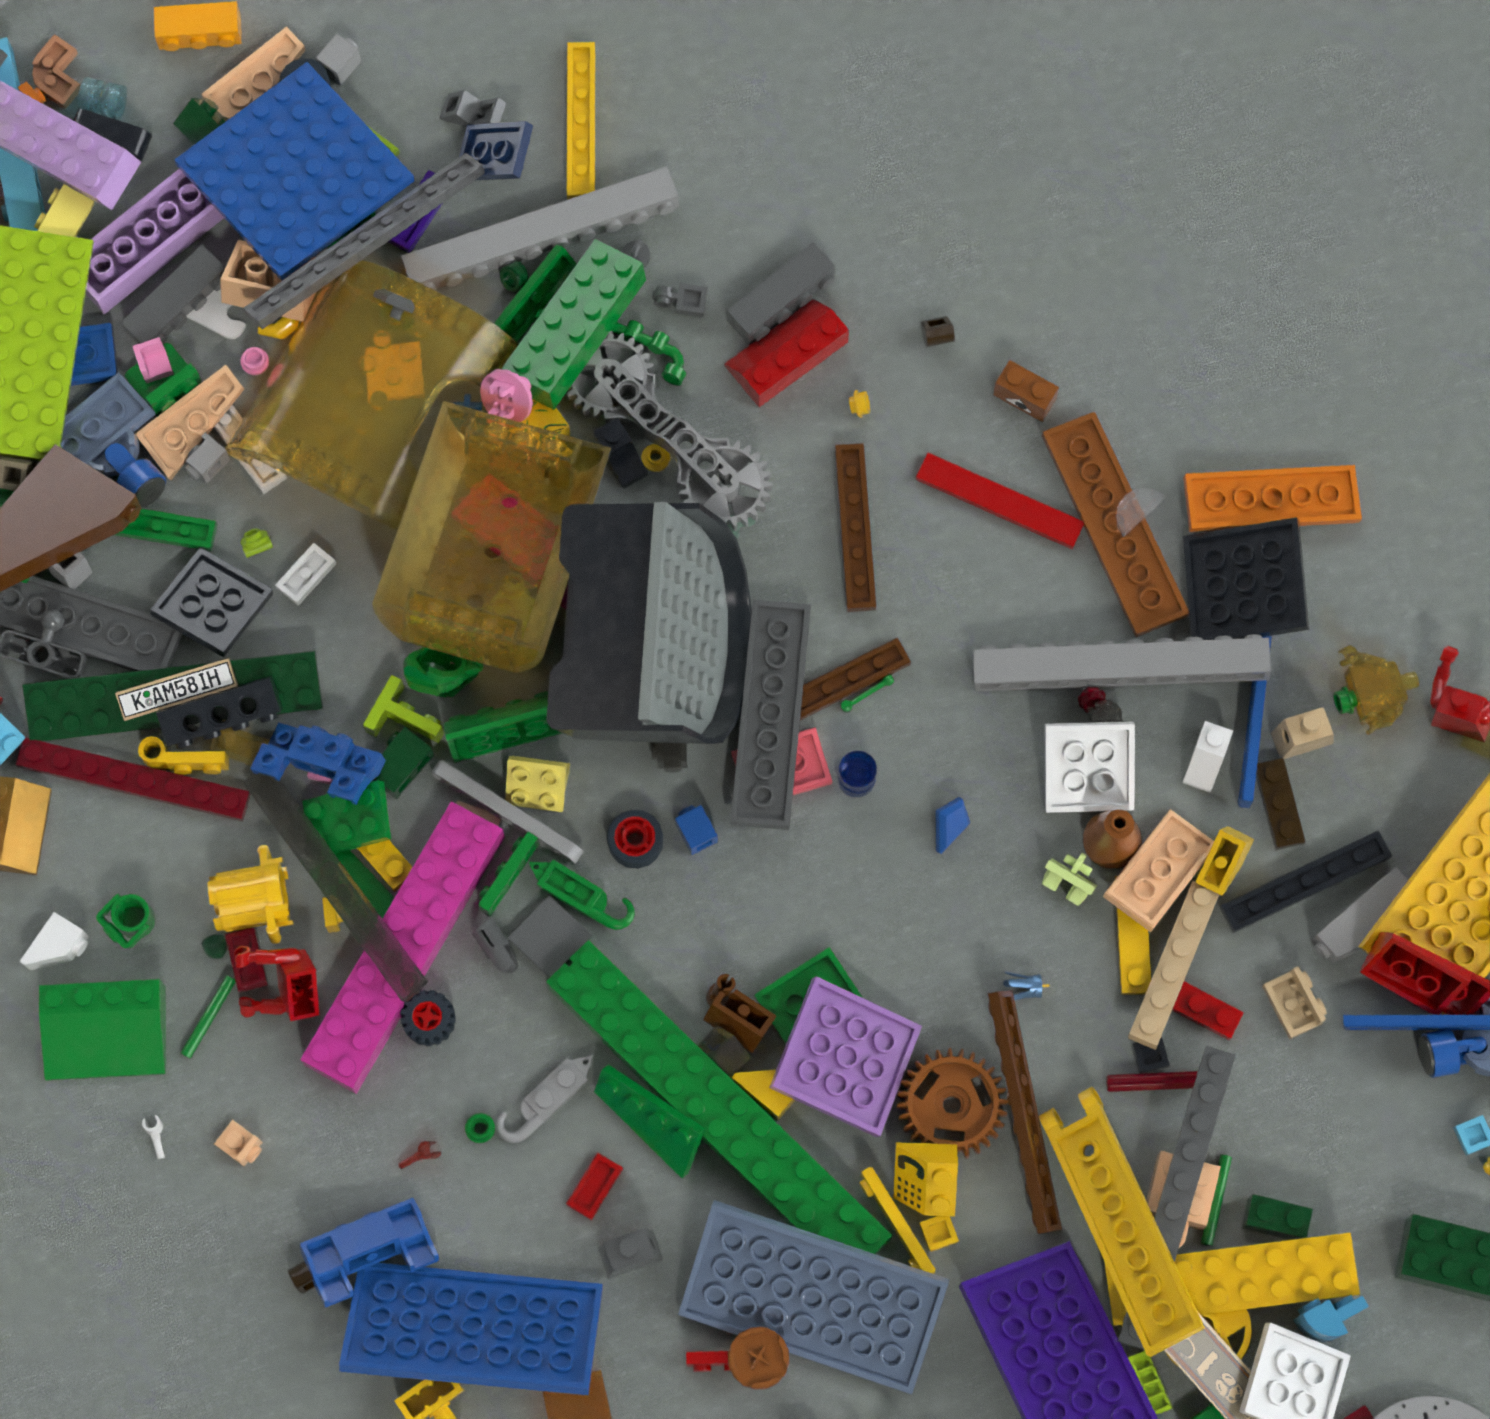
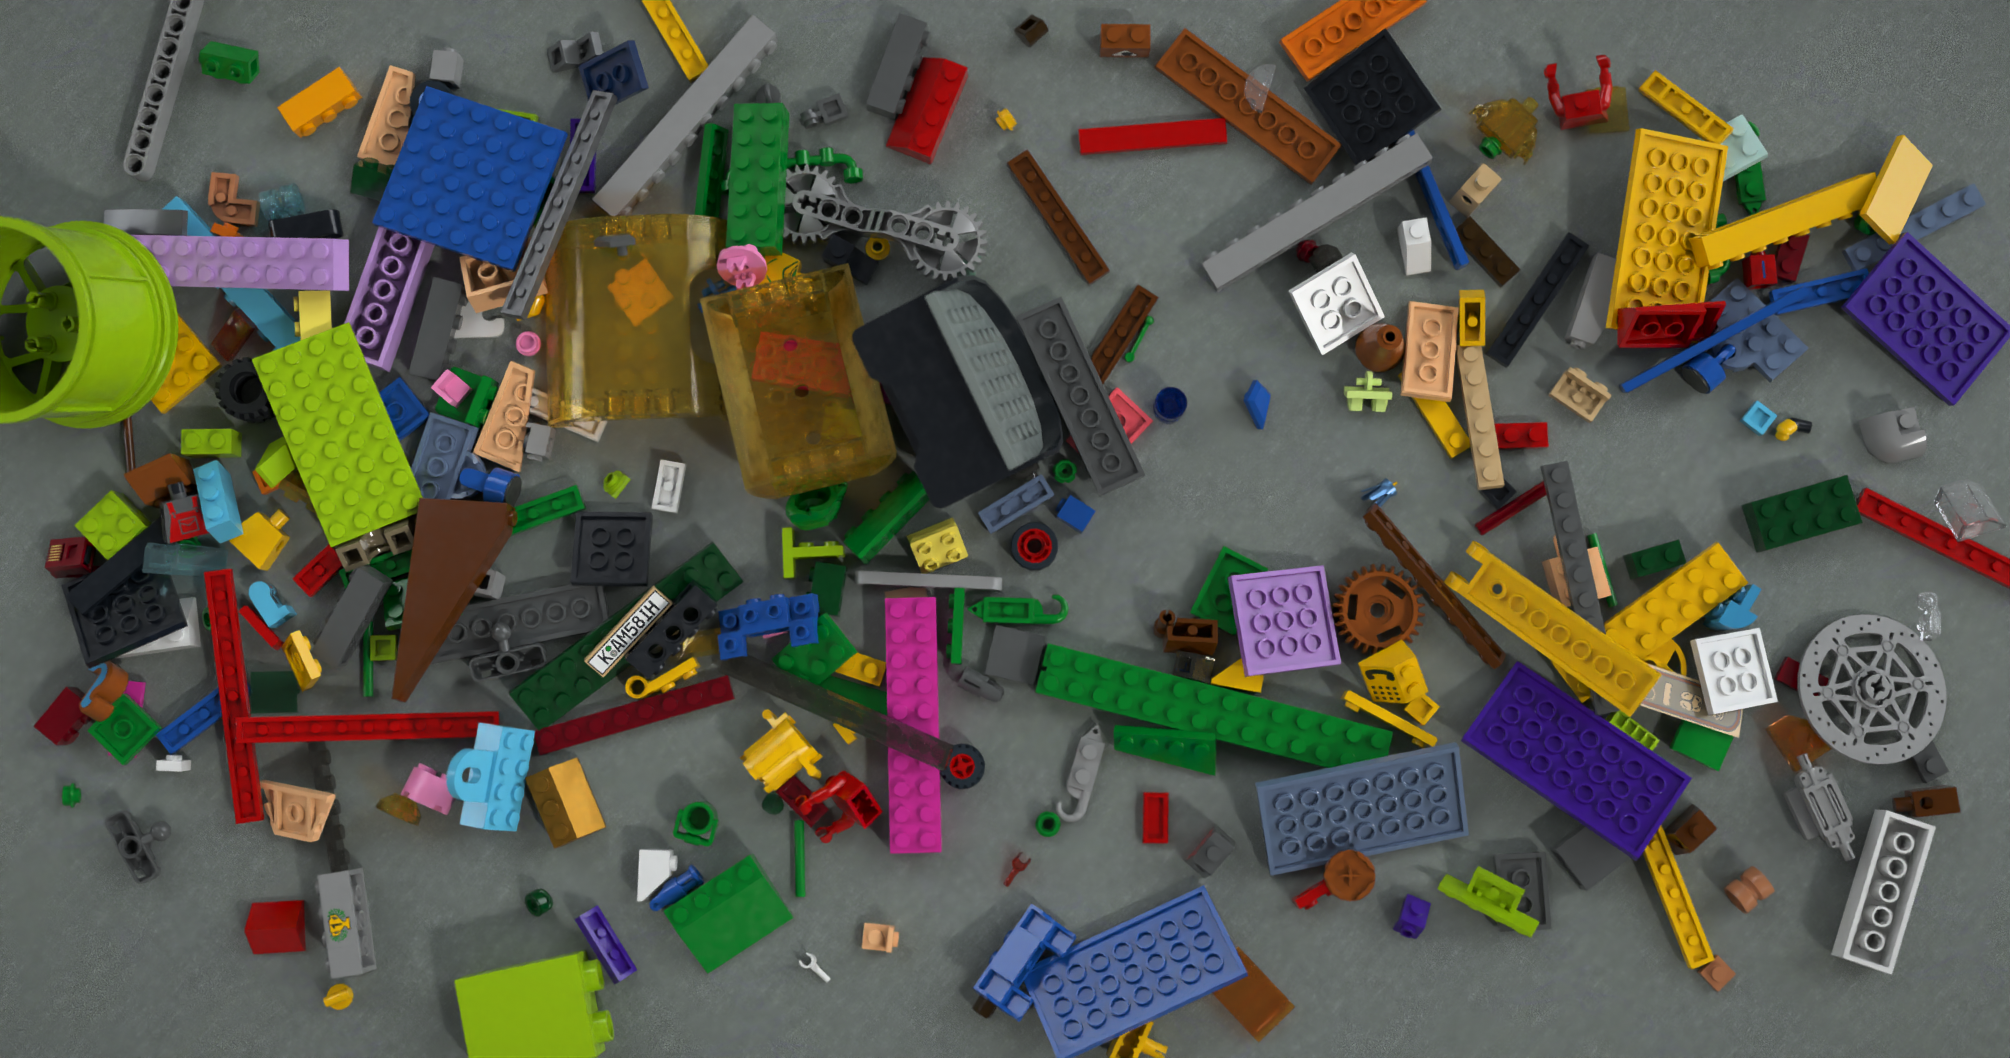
camera: 30 degrees left, 10 degrees up
(66, 973) = (676, 889): none -> blue piece
(514, 276) = (686, 166): dark green tile -> none
(641, 786) = (1016, 504): none -> sand blue plate
(711, 774) = (1060, 476): none -> green plate

